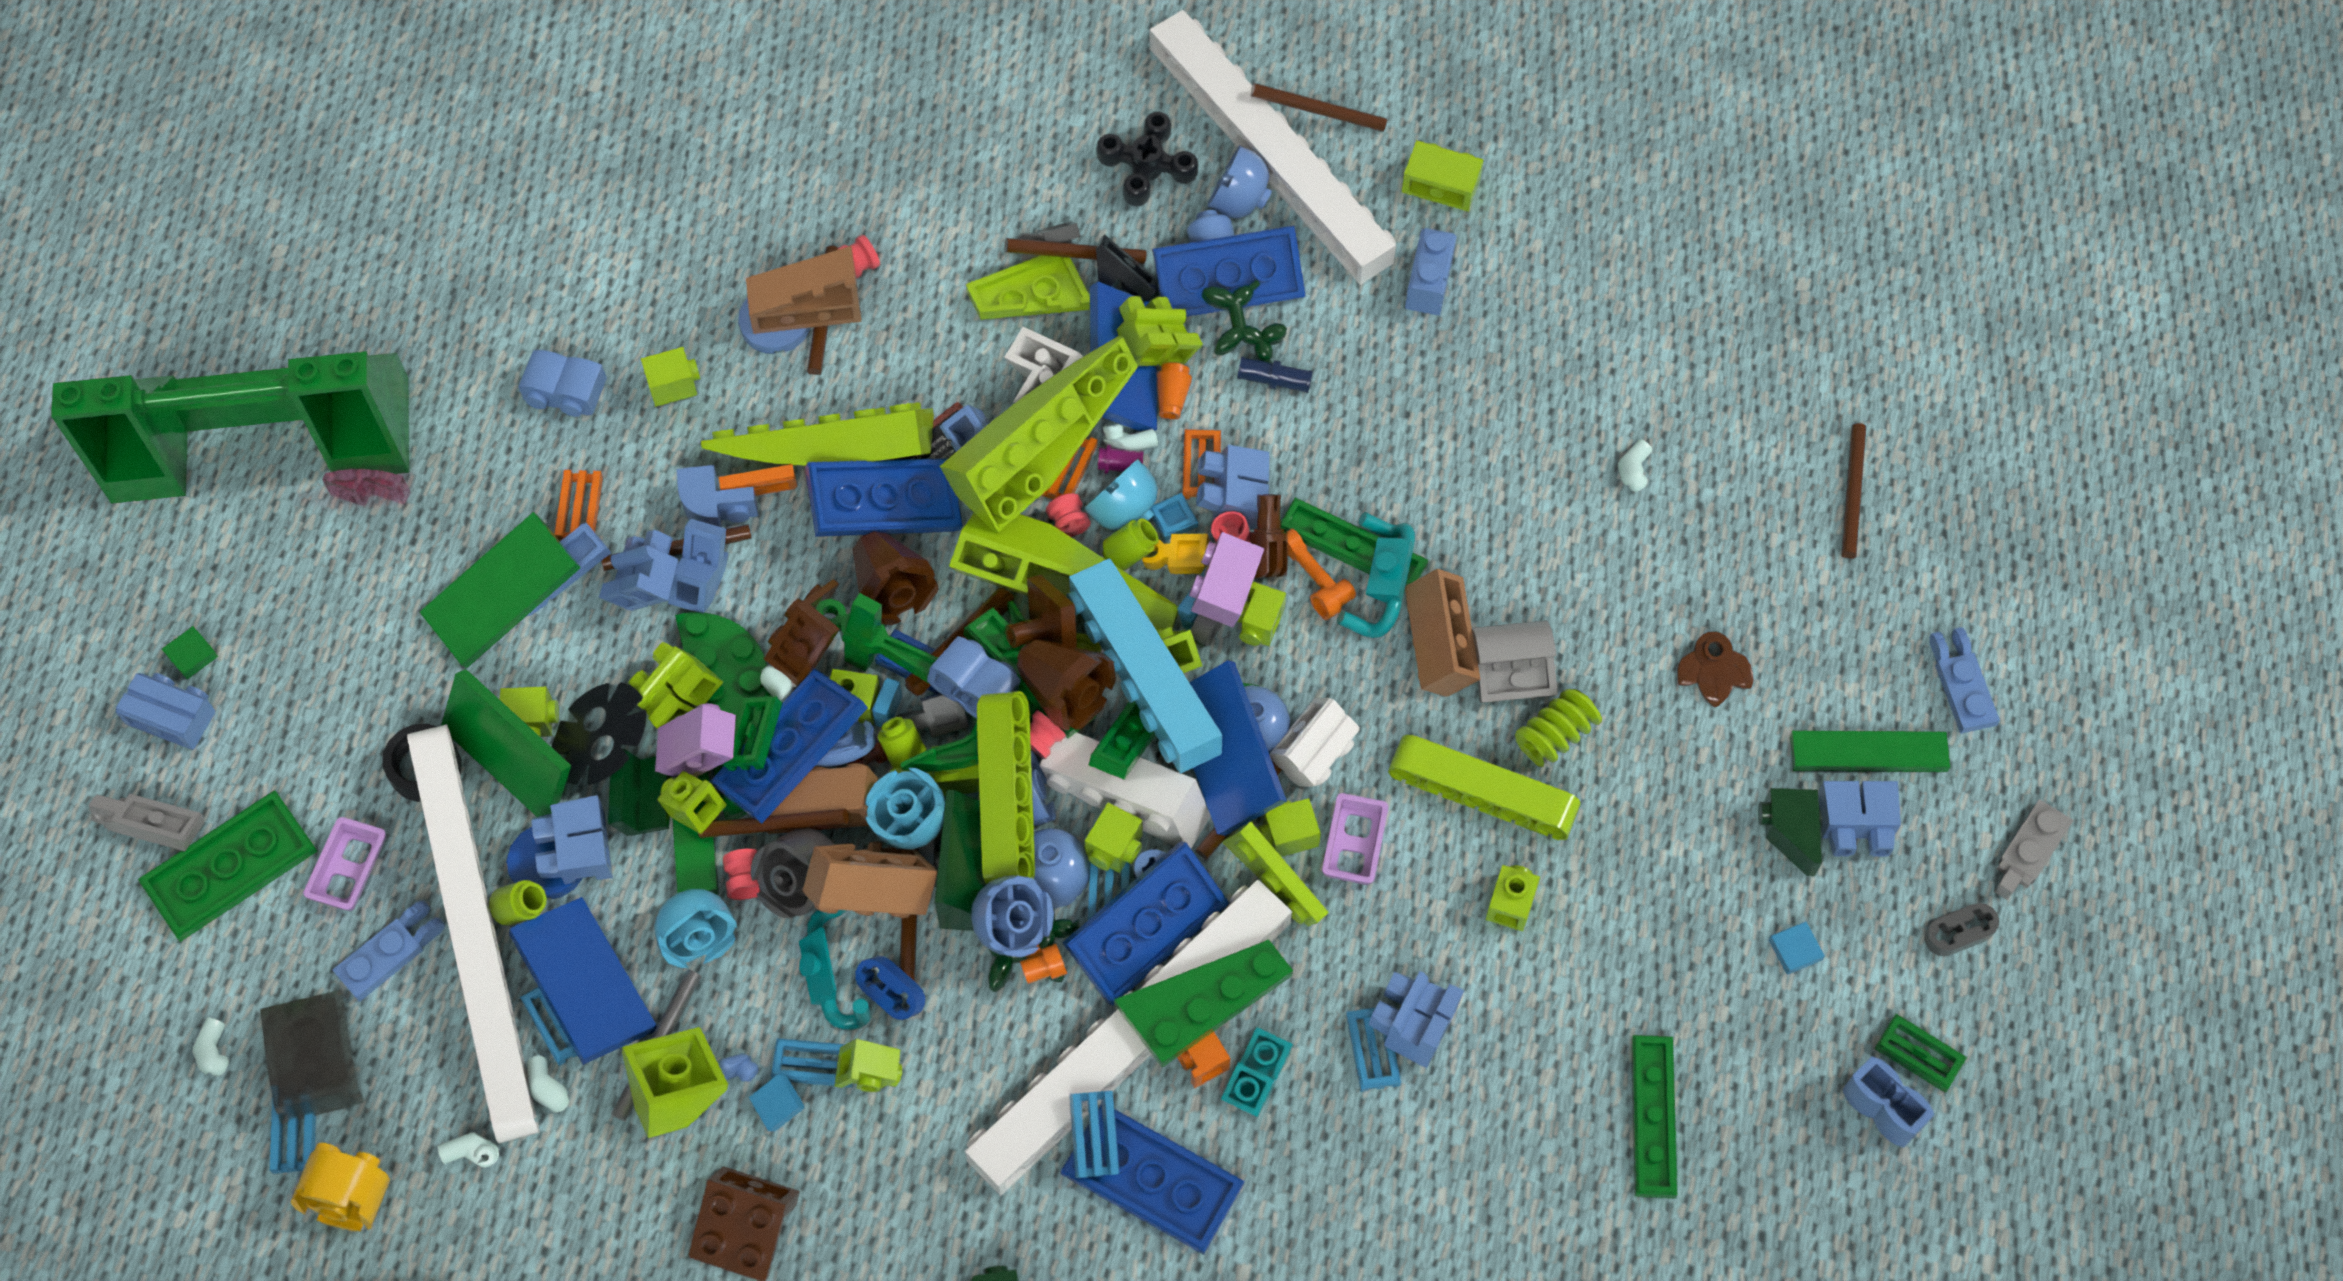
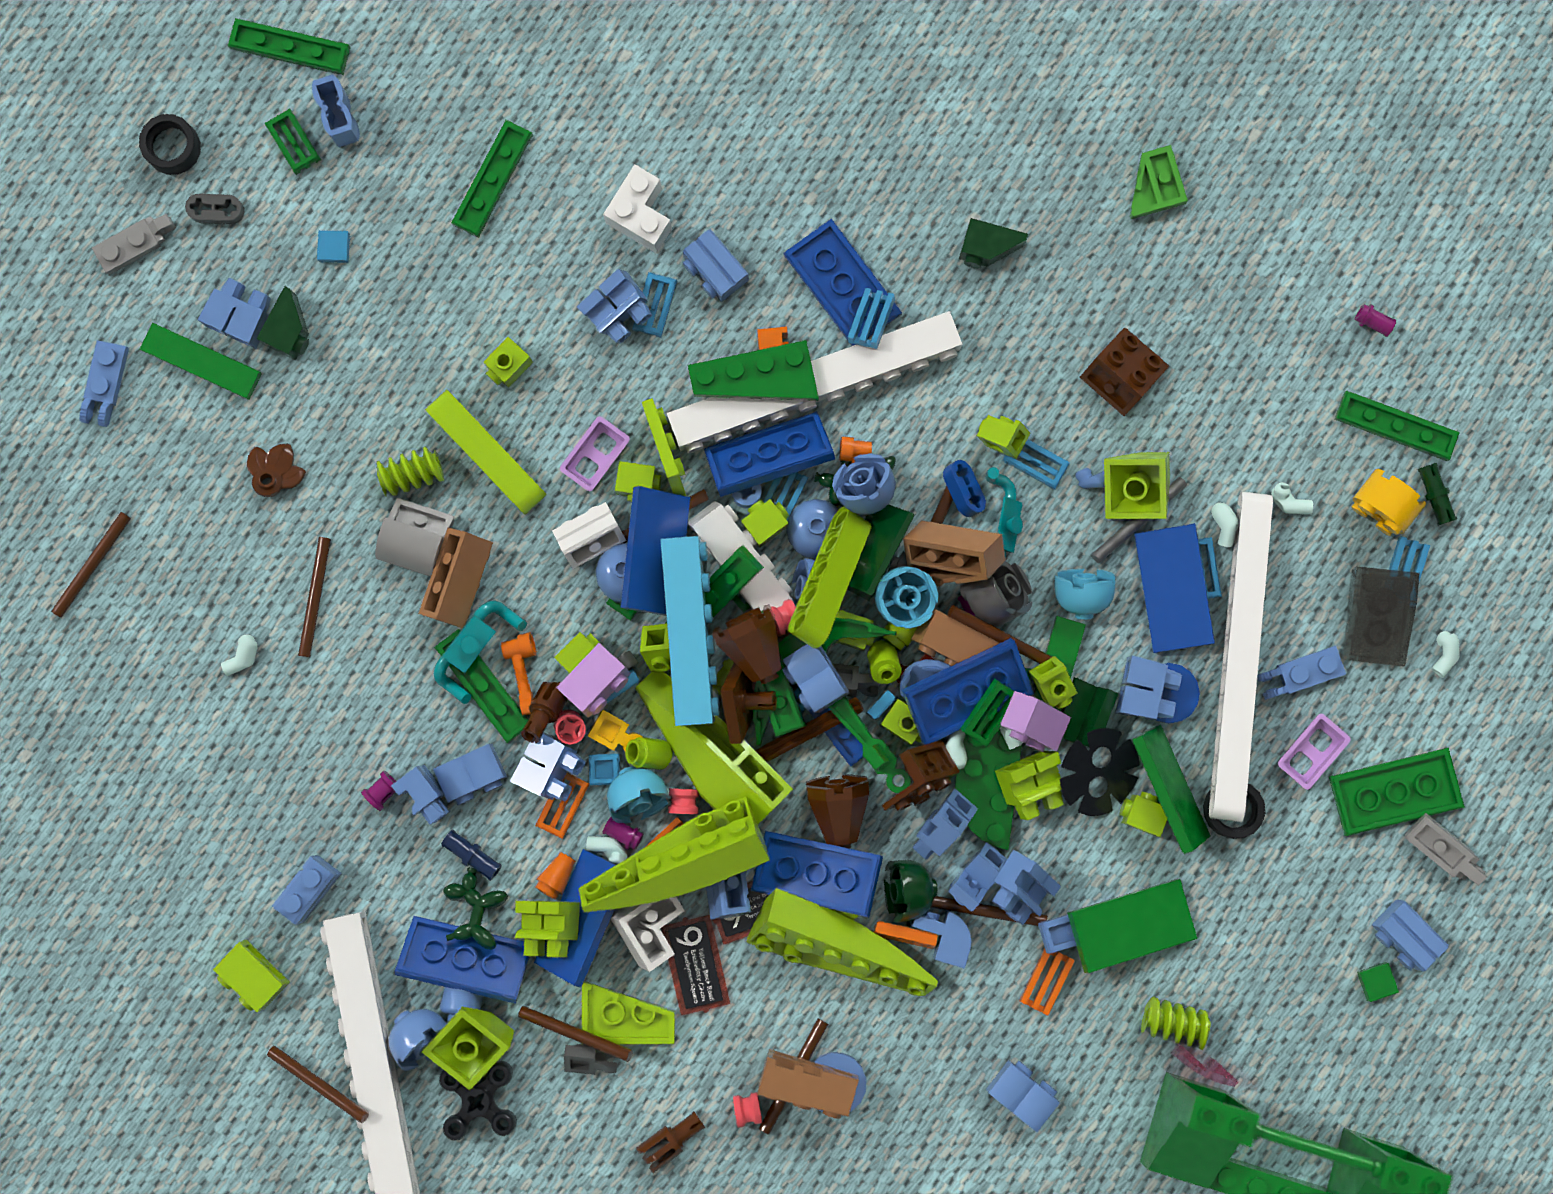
camera: 155 degrees left, 20 degrees up
(279, 1240) = (1437, 494): none -> dark green pin
(414, 516) = (1176, 1021): none -> lime piece
(517, 902) = (1202, 663): lime brick -> none
(670, 376) = (937, 1060): lime brick -> none
(738, 867) = (1033, 620): coral wheel -> none
(757, 599) = (944, 825): none -> medium blue hips
(770, 524) = (909, 890): none -> dark green cylinder
(776, 1102) = (1072, 442): dark azure tile -> none
(928, 198) = (664, 1150): none -> reddish brown arm
(976, 369) = (696, 965): none -> piece
(1116, 264) = (545, 998): black slope -> none
(1177, 196) = (469, 1045): none -> lime slope
(1257, 1072) = (740, 322): teal slope -> none
(1317, 449) = (470, 773): none -> medium blue brick
(1321, 1122) = (715, 266): none -> medium blue brick
(1357, 404) = (425, 793): none -> medium blue hips
(1405, 395) = (380, 791): none -> magenta bush
(1456, 1139) = (632, 211): none -> white brick
(1591, 559) = (314, 597): none -> reddish brown bar
(1997, 1169) = (289, 46): none -> green tile
(2078, 956) = (154, 128): none -> black tyre

